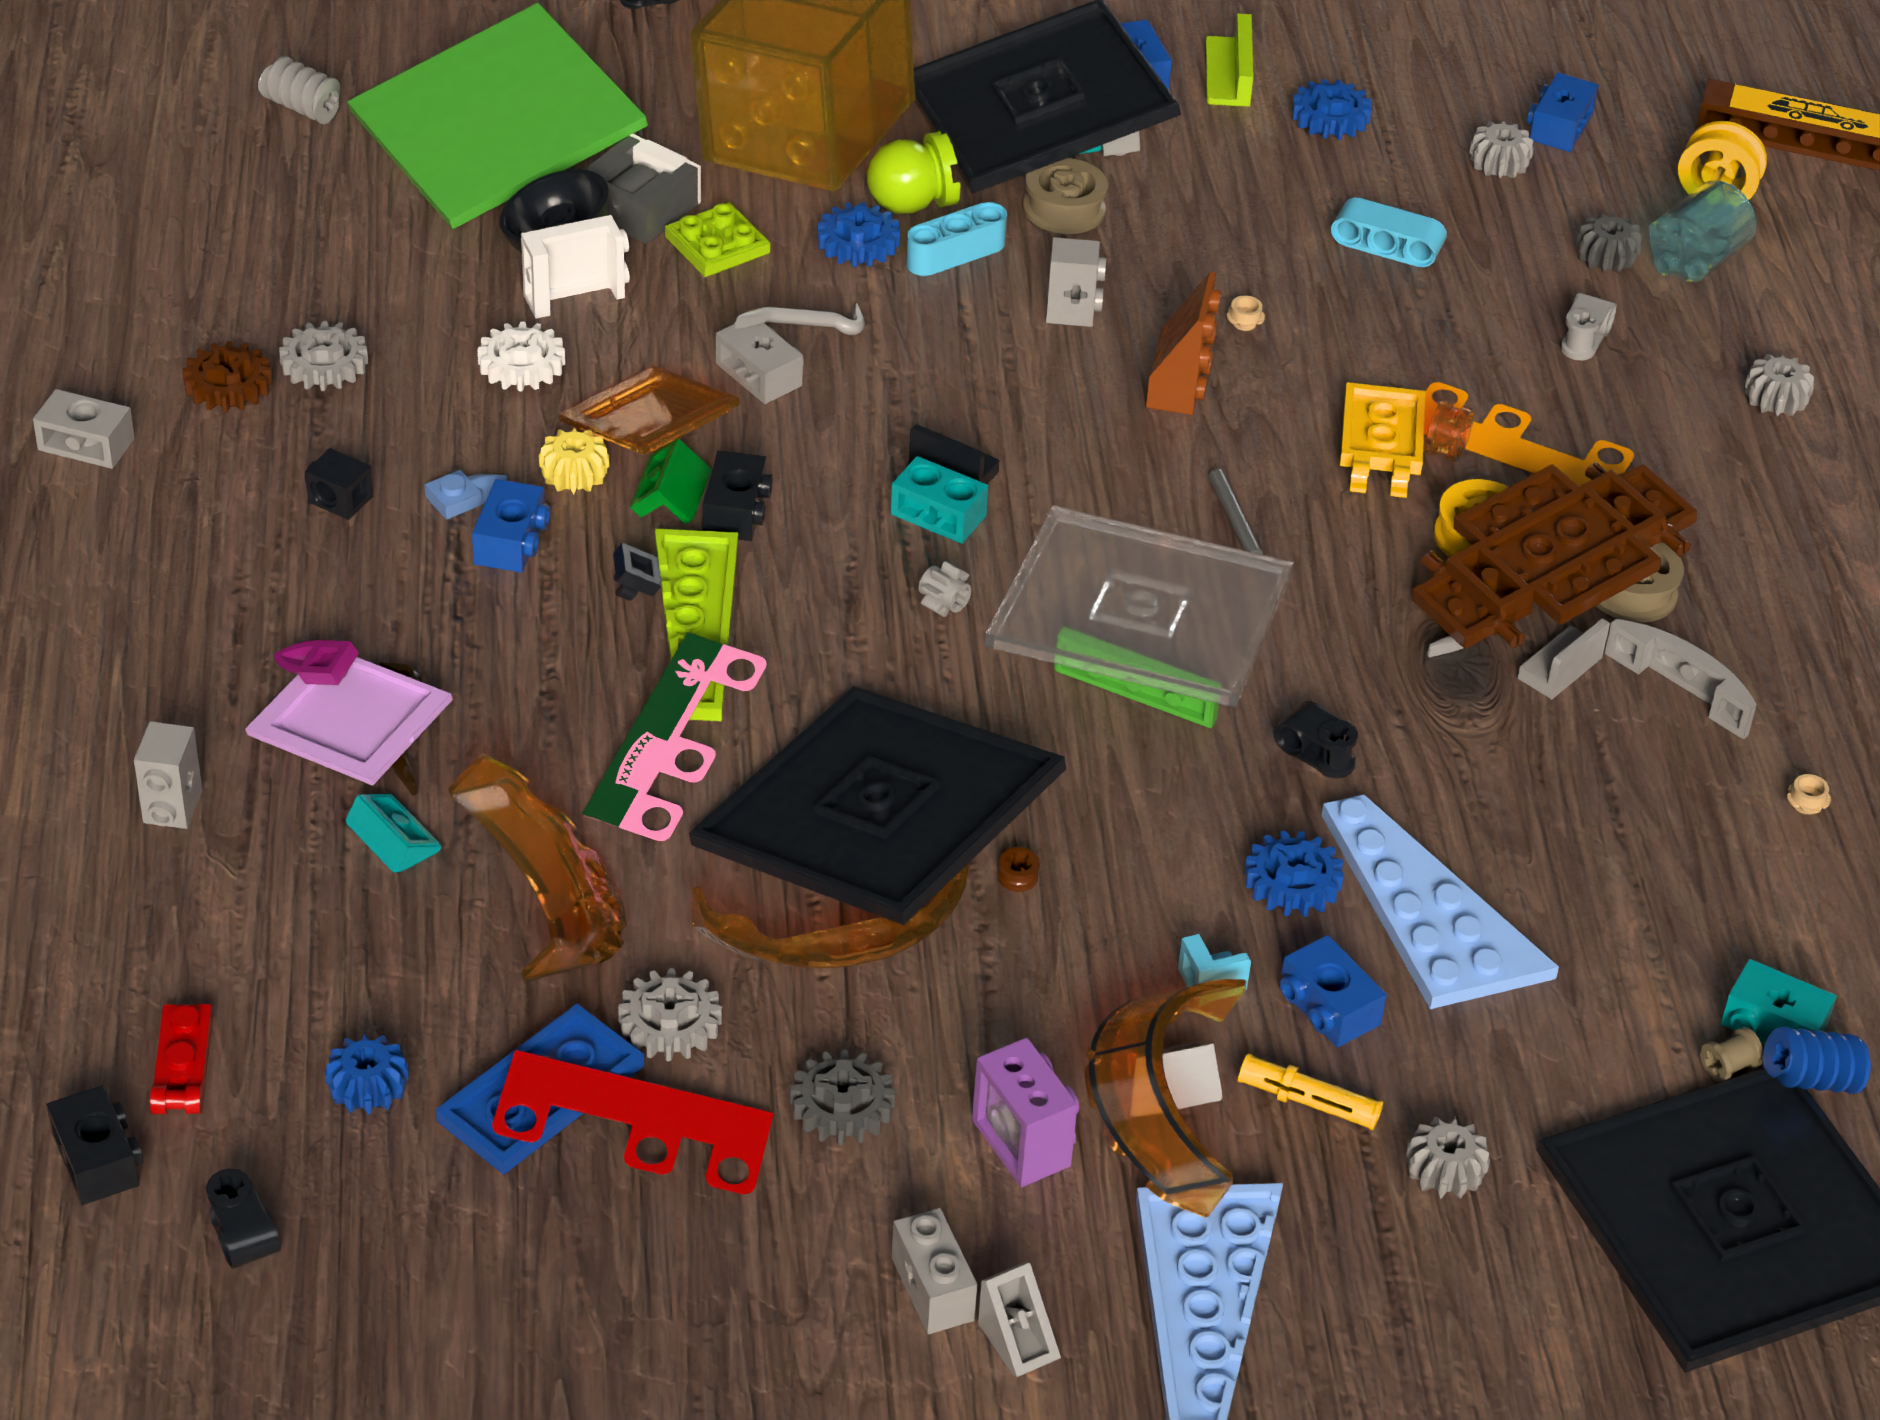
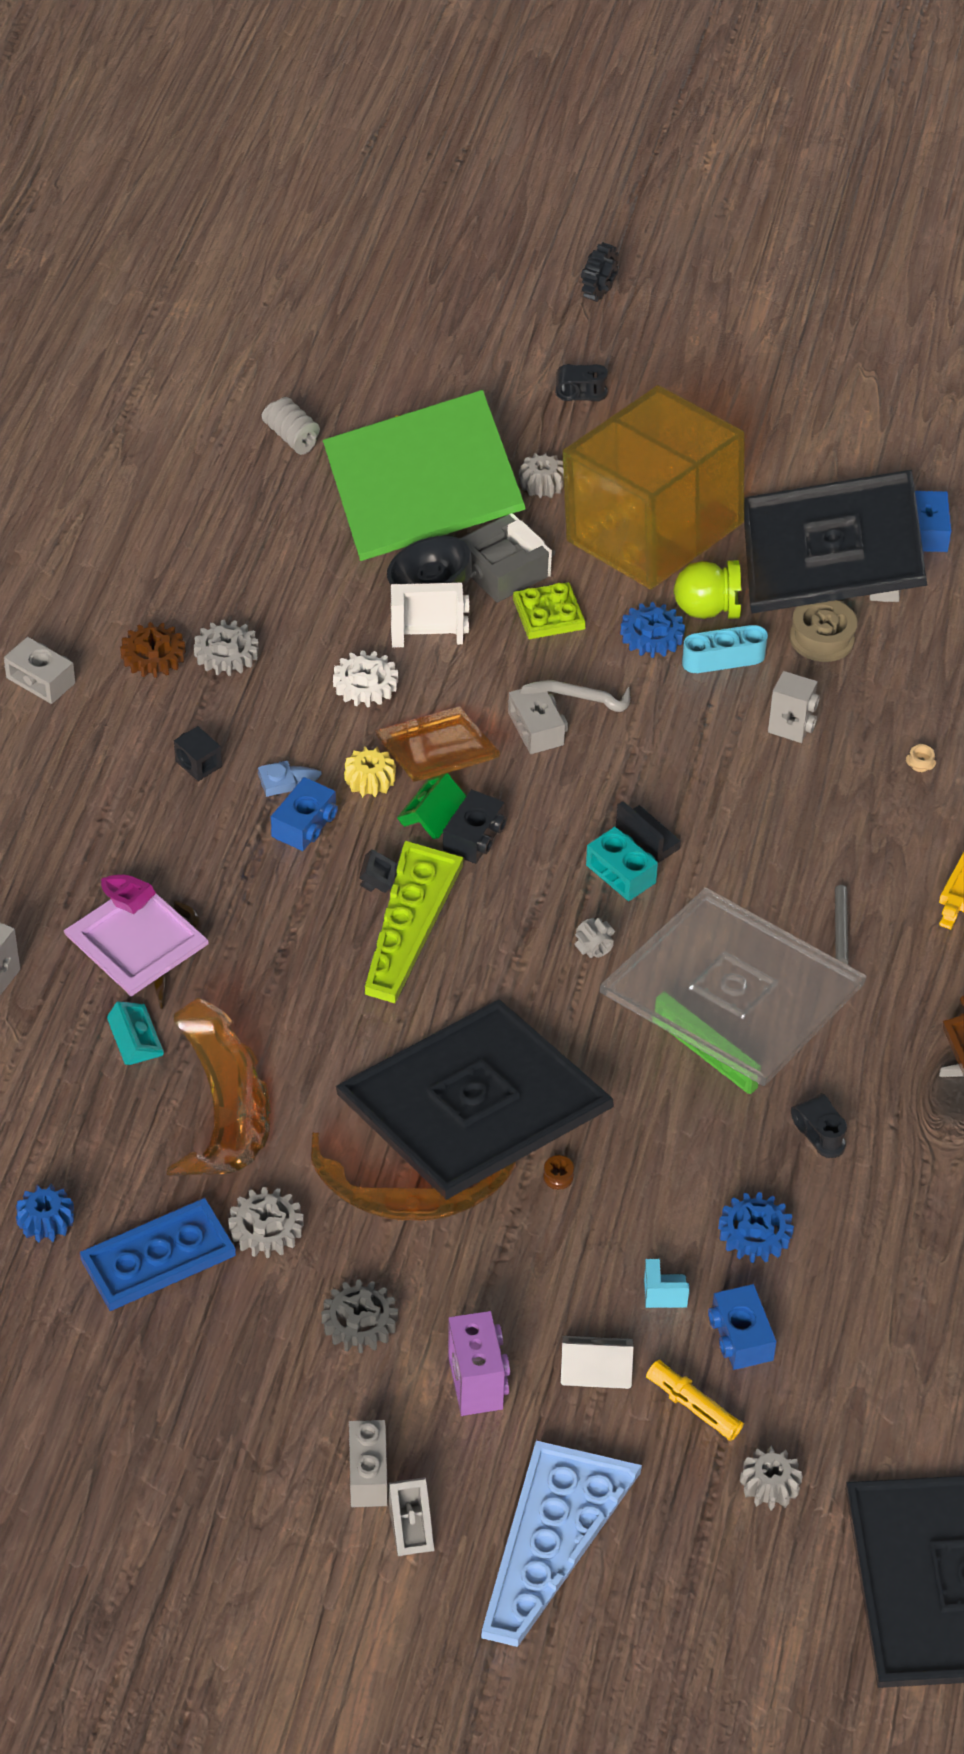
camera: 20 degrees right, 5 degrees up
(648, 1107) = (223, 1287): red piece -> none
(649, 88) = (542, 475): none -> light grey gear
(655, 736) = (342, 1003): piece -> none
(1133, 1096) = (550, 1368): clear orange windscreen -> none
(1183, 352) = (851, 787): dark orange slope -> none
(1438, 924) = (848, 1290): light blue wing -> none

